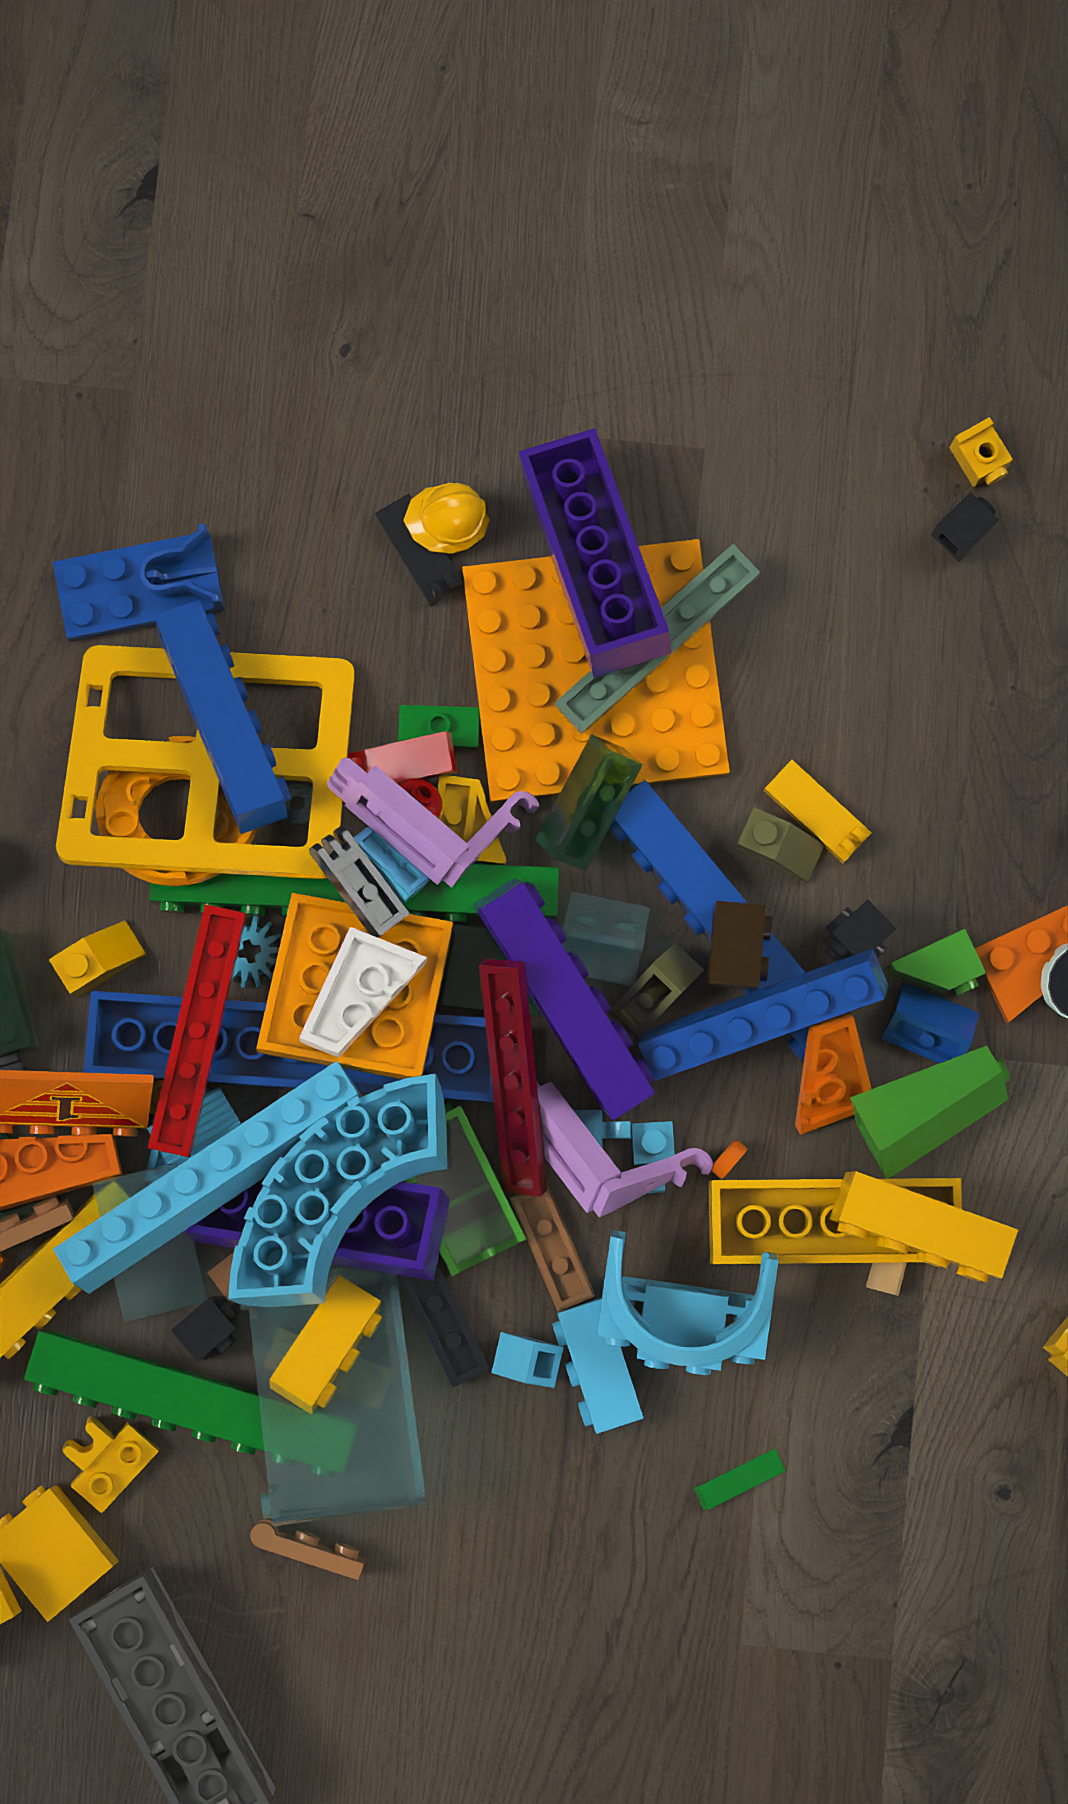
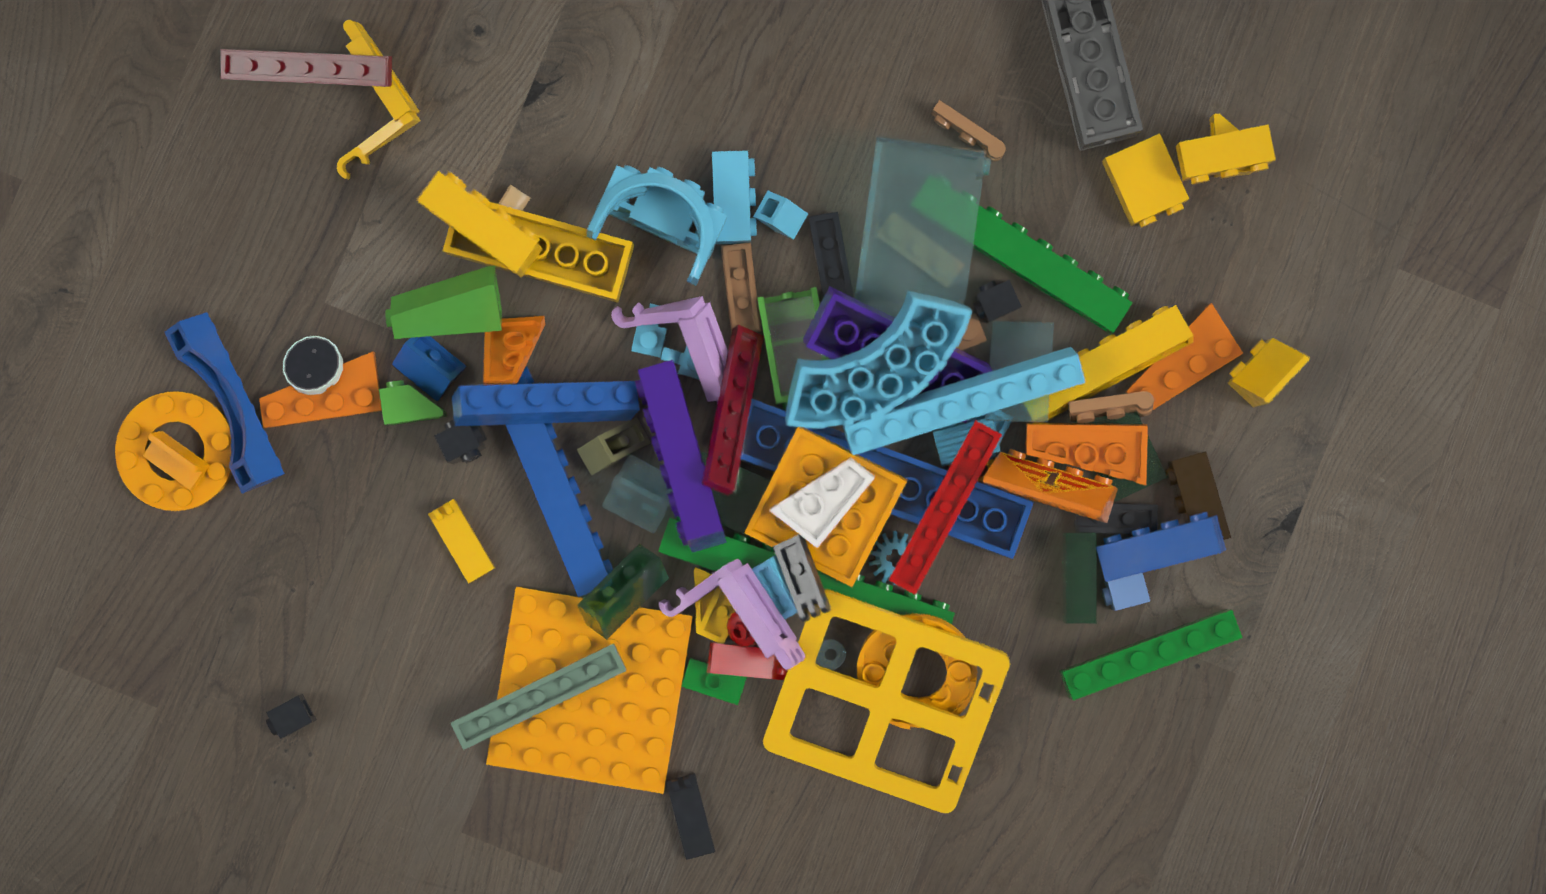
camera: 160 degrees left, 5 degrees up
(97, 958) = (1003, 584): yellow slope -> none
(108, 1462) = (1090, 230): yellow plate -> none
(133, 583) = (901, 848): blue plate -> none
(221, 716) = (867, 730): blue brick -> none
(326, 1346) = (916, 263): yellow brick -> none
(447, 518) = (664, 832): yellow piece -> none
(595, 553) = (565, 771): dark purple brick -> none
(729, 1158) = (599, 313): orange tile -> none
(737, 945) = (548, 457): dark brown brick -> none
(739, 1479) = (658, 92): green piece -> none
(779, 845) = (496, 524): olive slope -> none
(976, 467) = (271, 773): yellow brick -> none

